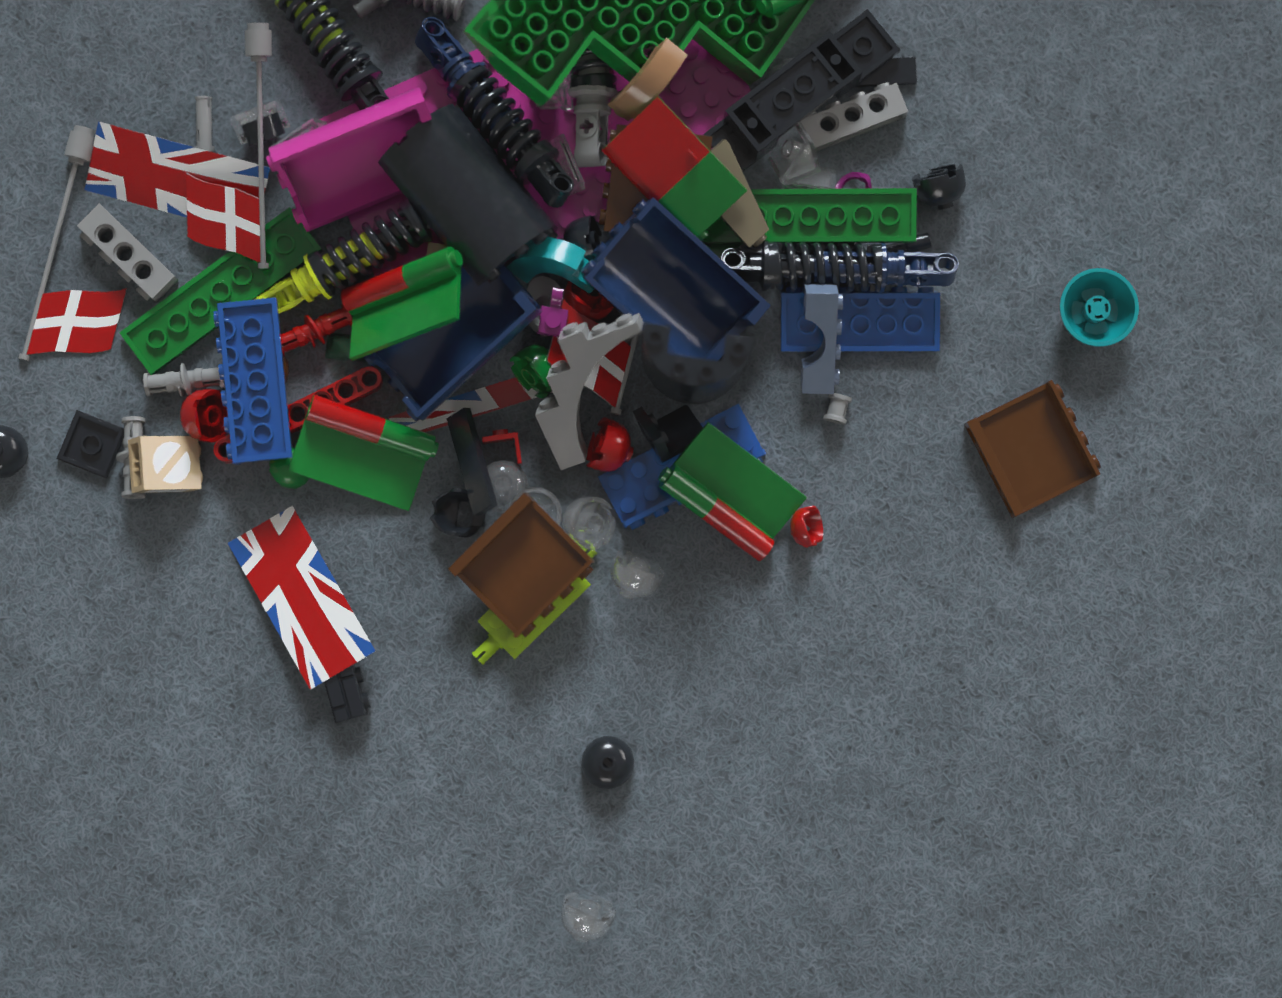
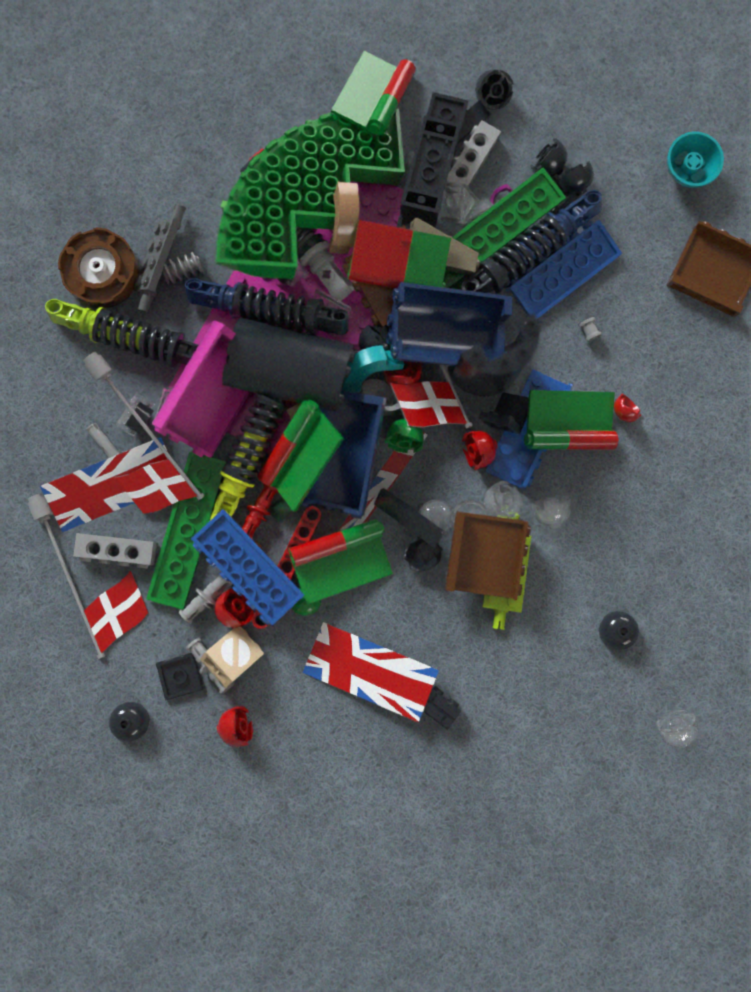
camera: 30 degrees left, 0 degrees up
(108, 544) = (235, 731): none -> red cylinder
(501, 436) = (413, 489): red bracket -> none
(553, 318) = (395, 398): magenta plate -> none
(583, 350) = (431, 425): light grey arch -> none
(818, 369) = (565, 314): sand blue arch -> none
(937, 58) = (494, 89): none -> black cylinder
(951, 229) = (576, 179): none -> black cylinder

